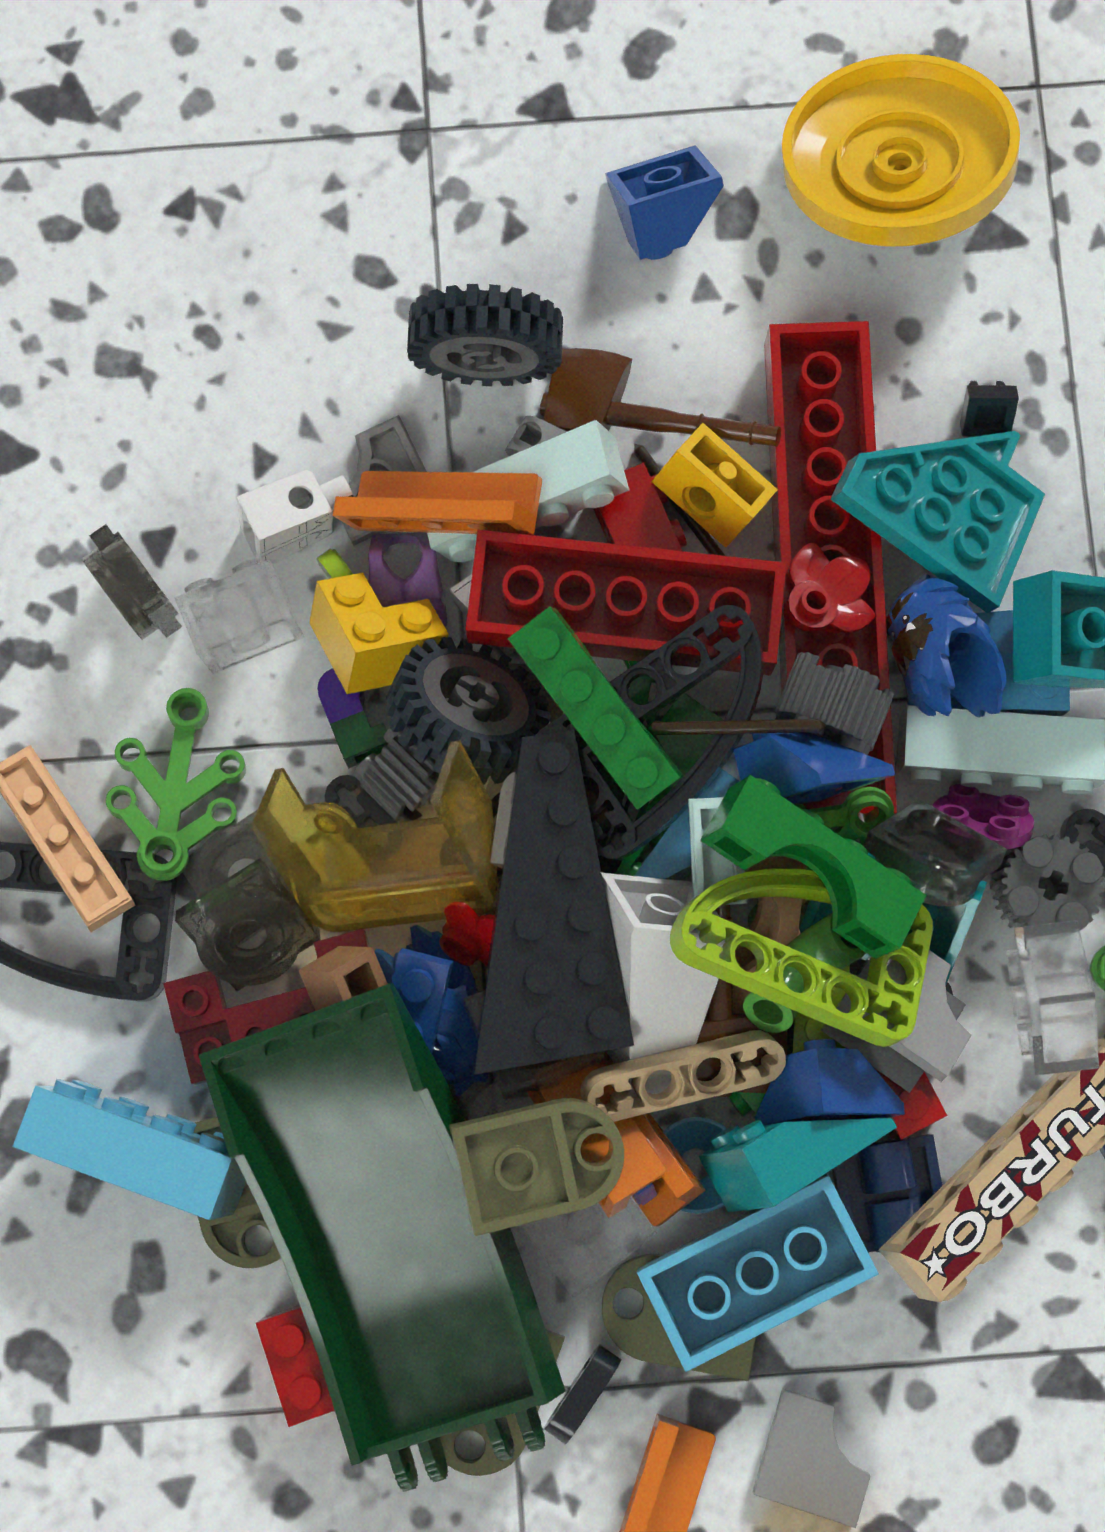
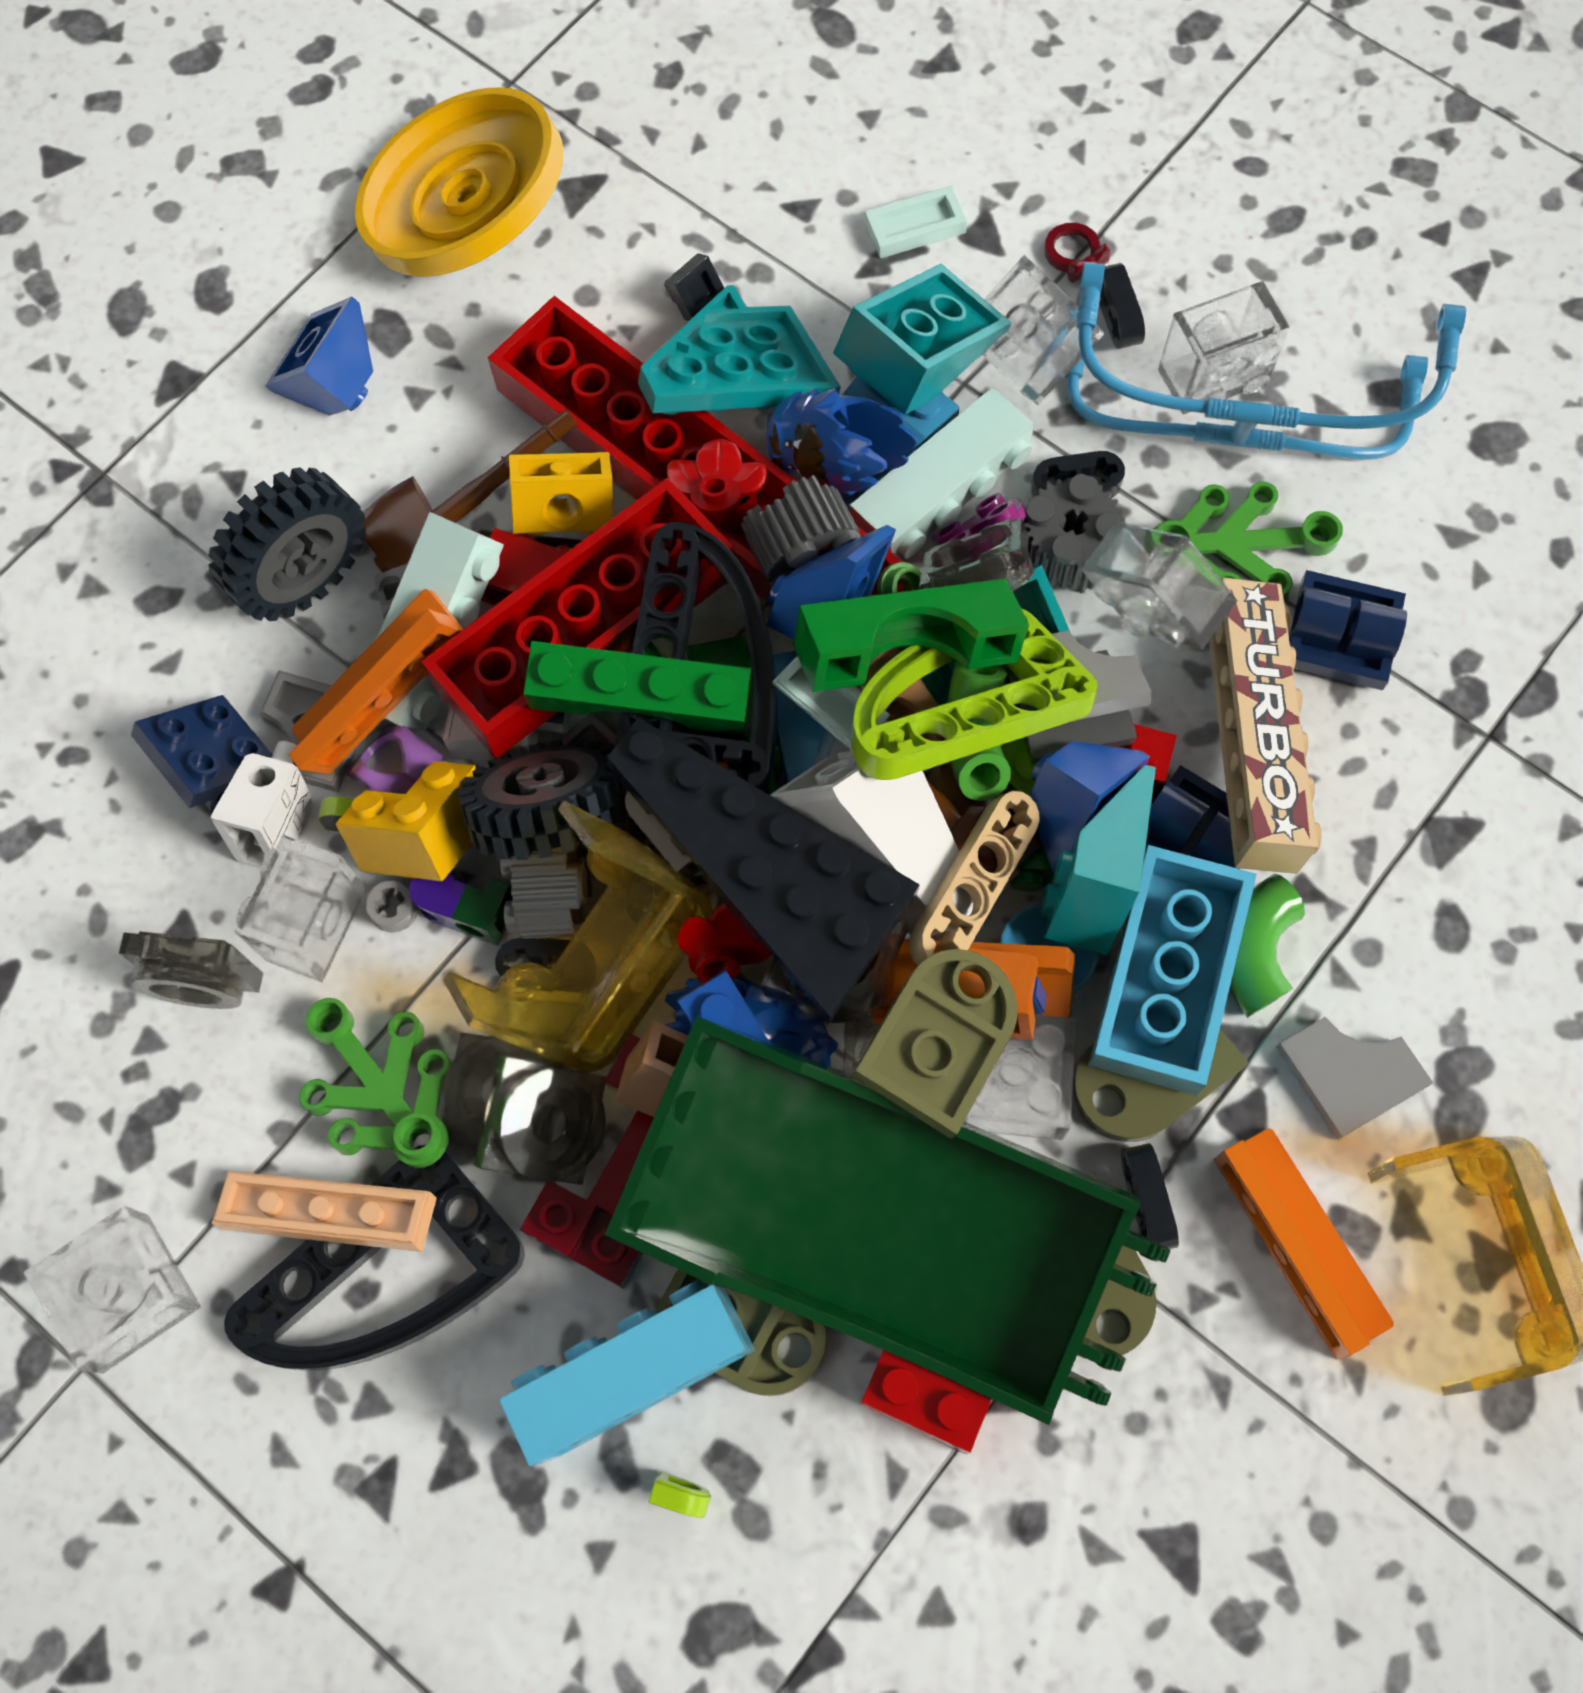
camera: 45 degrees left, 10 degrees down
(94, 1252) = (680, 1495): none -> lime tile
(289, 428) = (198, 748): none -> dark blue plate
(303, 654) = (377, 900): none -> light grey bush
(736, 727) = (754, 599): dark brown axle -> none
(819, 1330) = (1257, 974): none -> bright green cylinder

